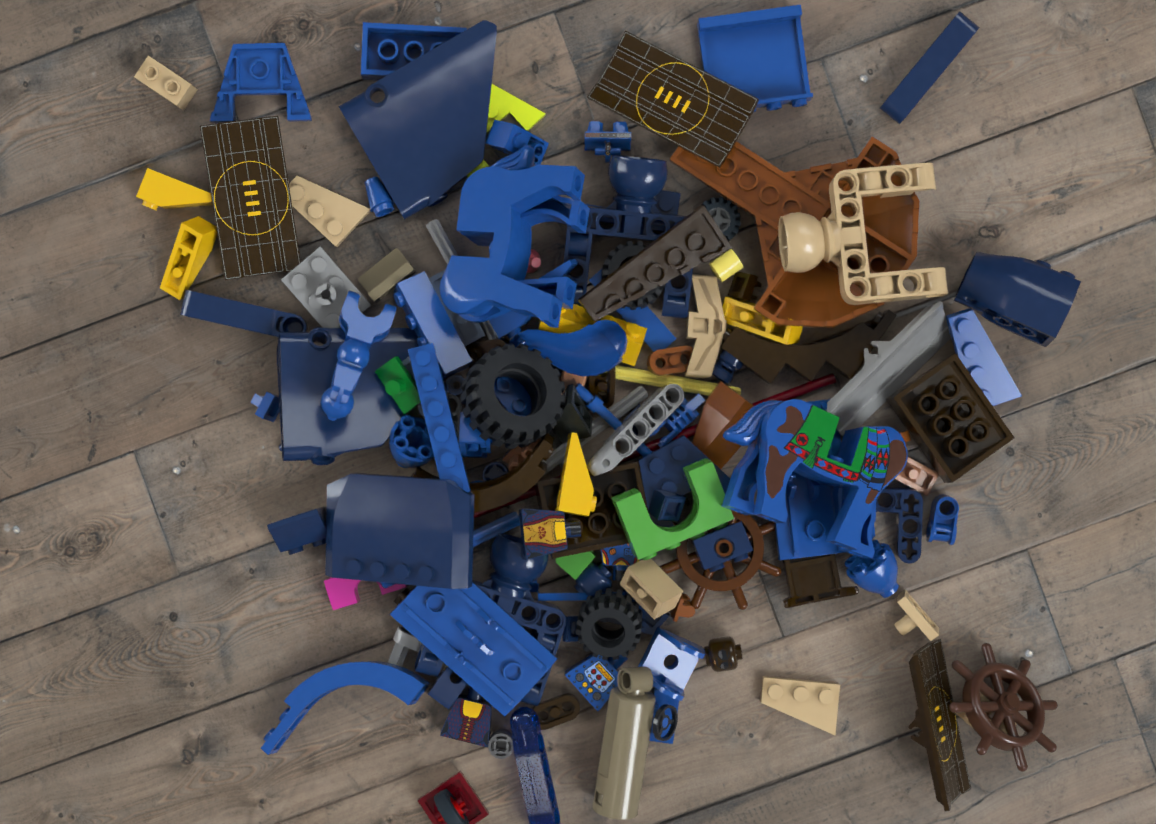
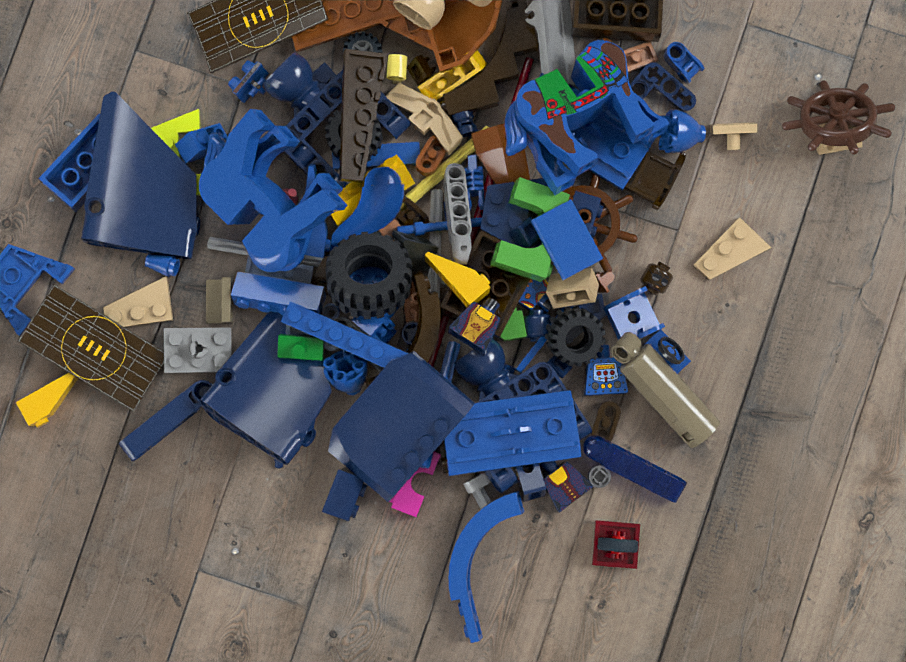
camera: 55 degrees left, 5 degrees down
(188, 255) = (97, 424): yellow slope -> none
(267, 406) = (242, 451): blue tile -> none
(353, 354) = (254, 360): blue piece -> none
(689, 550) = (566, 239): none -> blue piece
(938, 724) = (816, 170): dark brown hinge -> none

